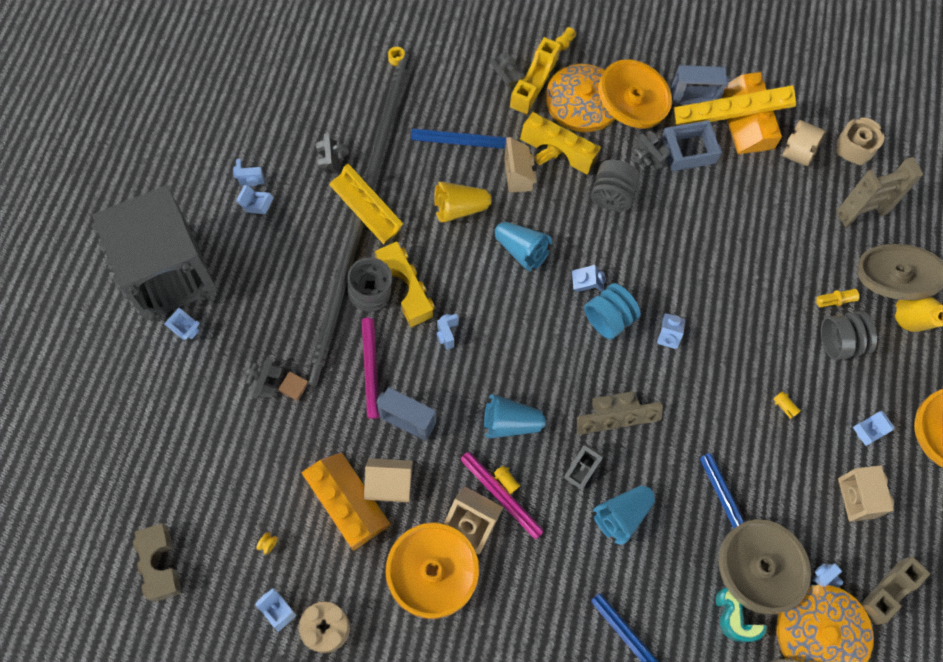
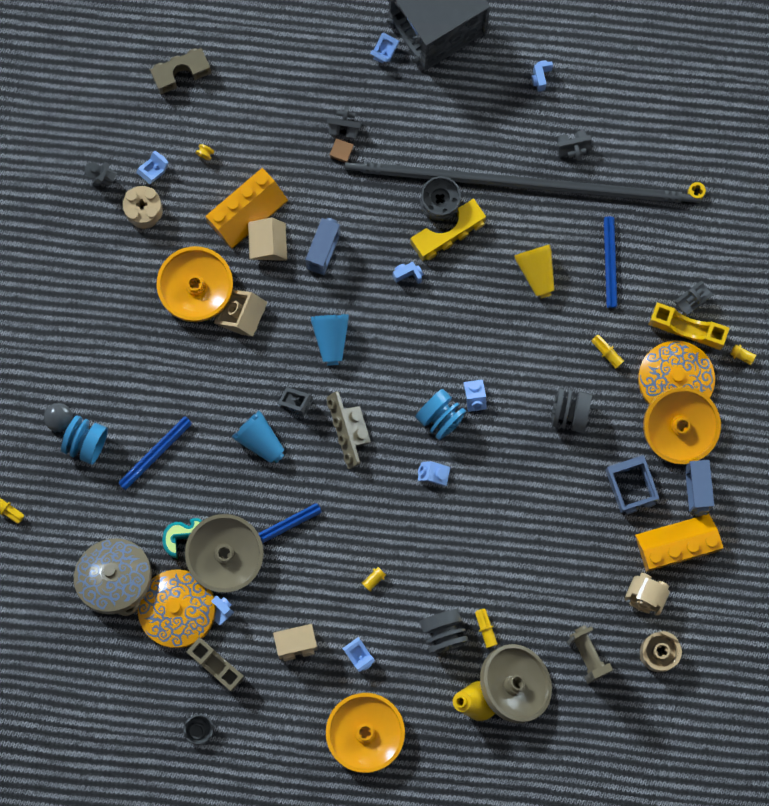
camera: 85 degrees right, 10 degrees up
(254, 201) = (514, 85): light blue bracket -> none
(366, 204) = (519, 183): yellow fence -> none
(370, 367) = (370, 211): dark pink axle -> none
(502, 495) = (265, 336): dark pink axle -> none
(506, 479) = (278, 338): yellow pin -> none
(519, 166) = (582, 319): tan slope -> none
(524, 244) = (500, 331): dark azure cone -> none
(580, 152) = (611, 367): yellow arch -> none
(648, 153) = (627, 441): dark grey hips -> none
(736, 106) = (677, 522): yellow plate -> none

